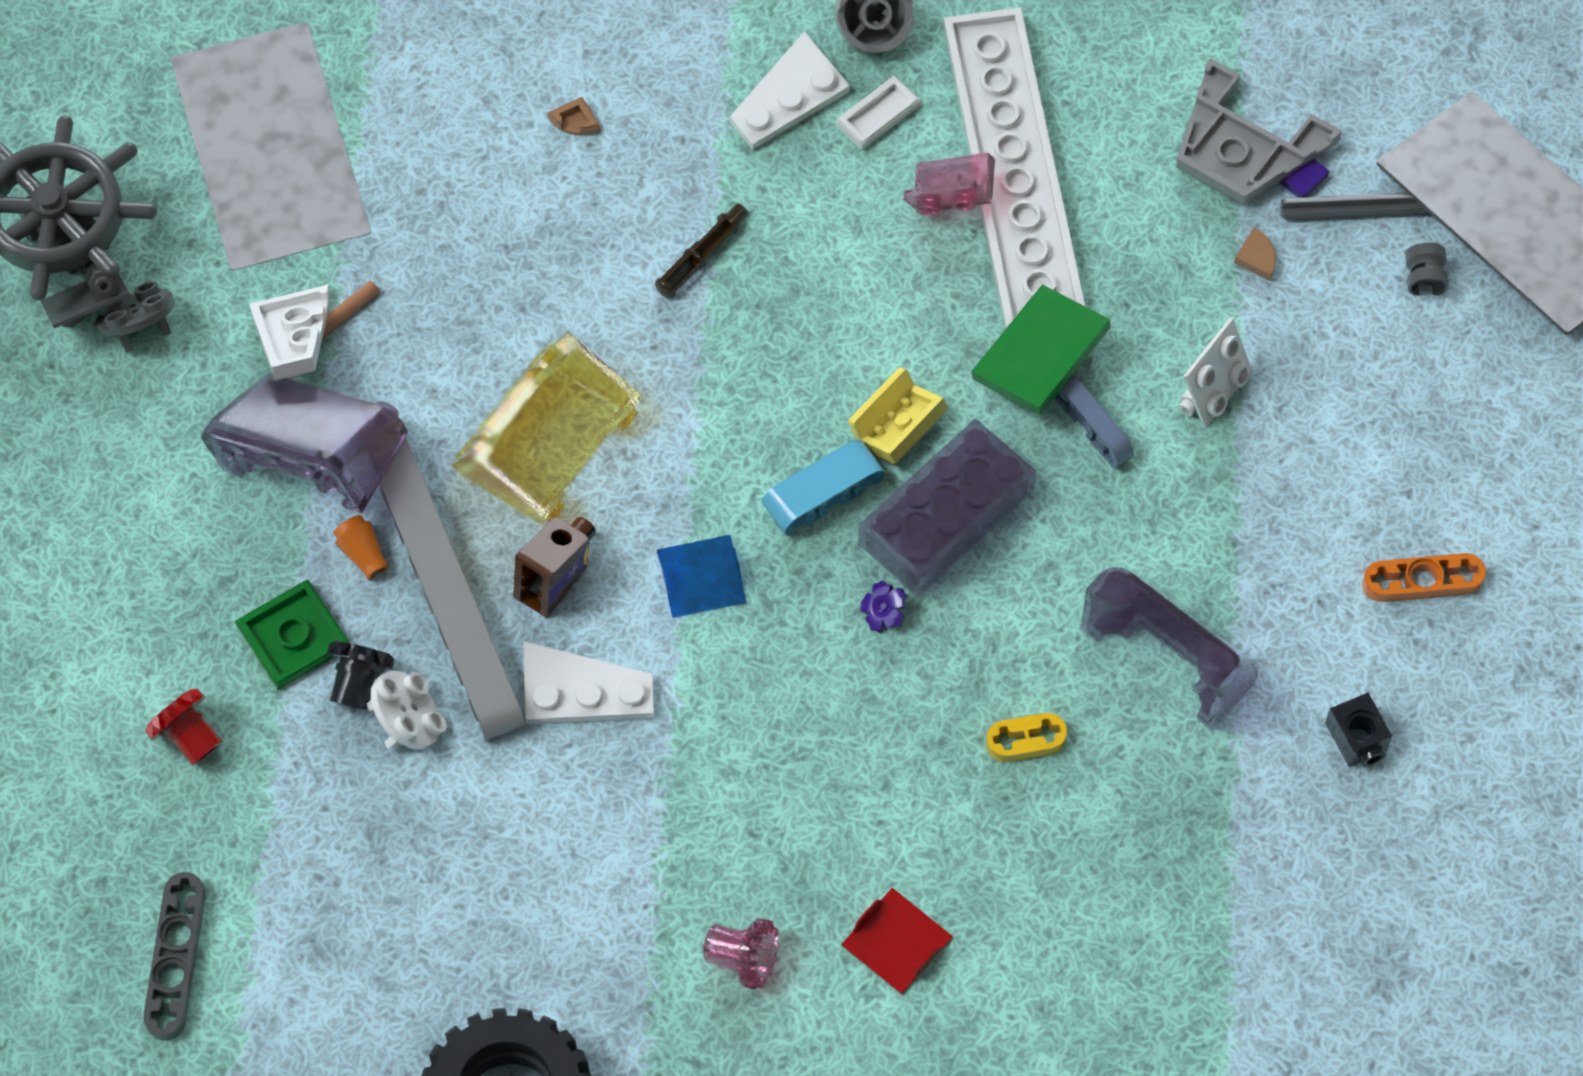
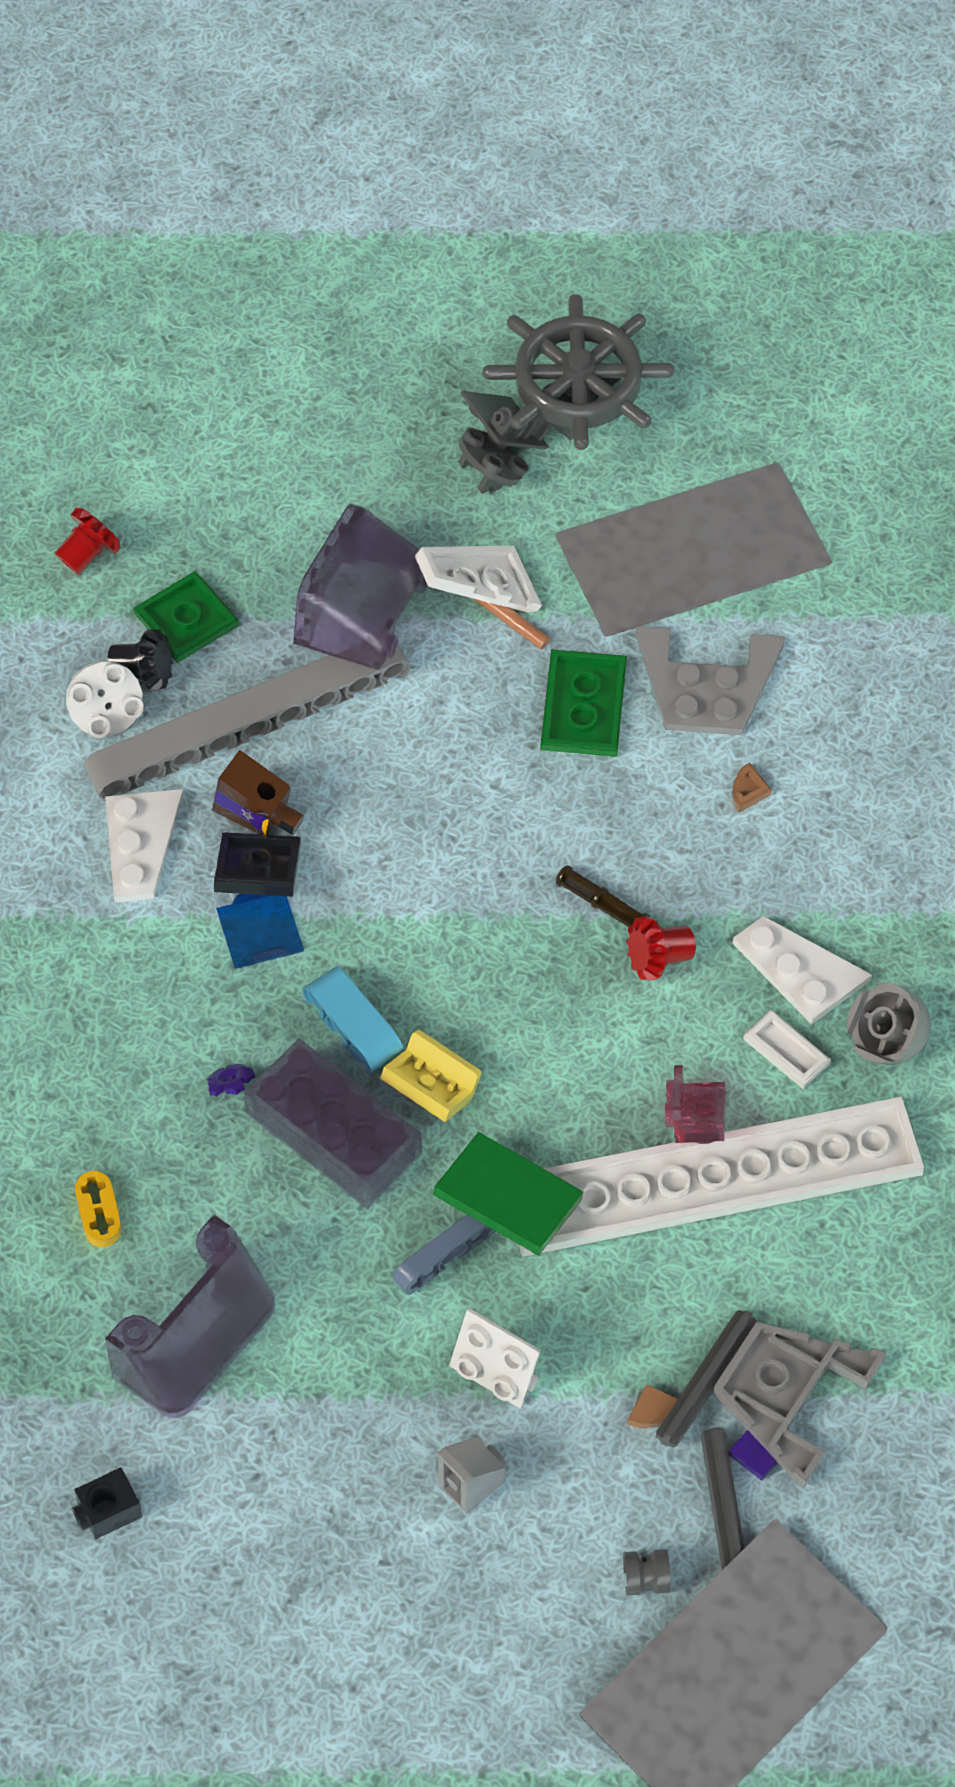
camera: 85 degrees right, 5 degrees down
(359, 543) = (273, 655): orange cone -> none
(454, 256) = (583, 703): none -> green tile
(458, 146) = (706, 695): none -> light grey wing
(547, 428) = (391, 783): clear yellow windscreen -> none
(629, 568) = (257, 864): none -> black tile
(765, 206) = (656, 947): none -> red gear
(1231, 206) = (704, 1379): none -> dark grey axle
(1333, 403) = (470, 1472): none -> light grey slope
(1455, 585) = (301, 1599): orange beam -> none

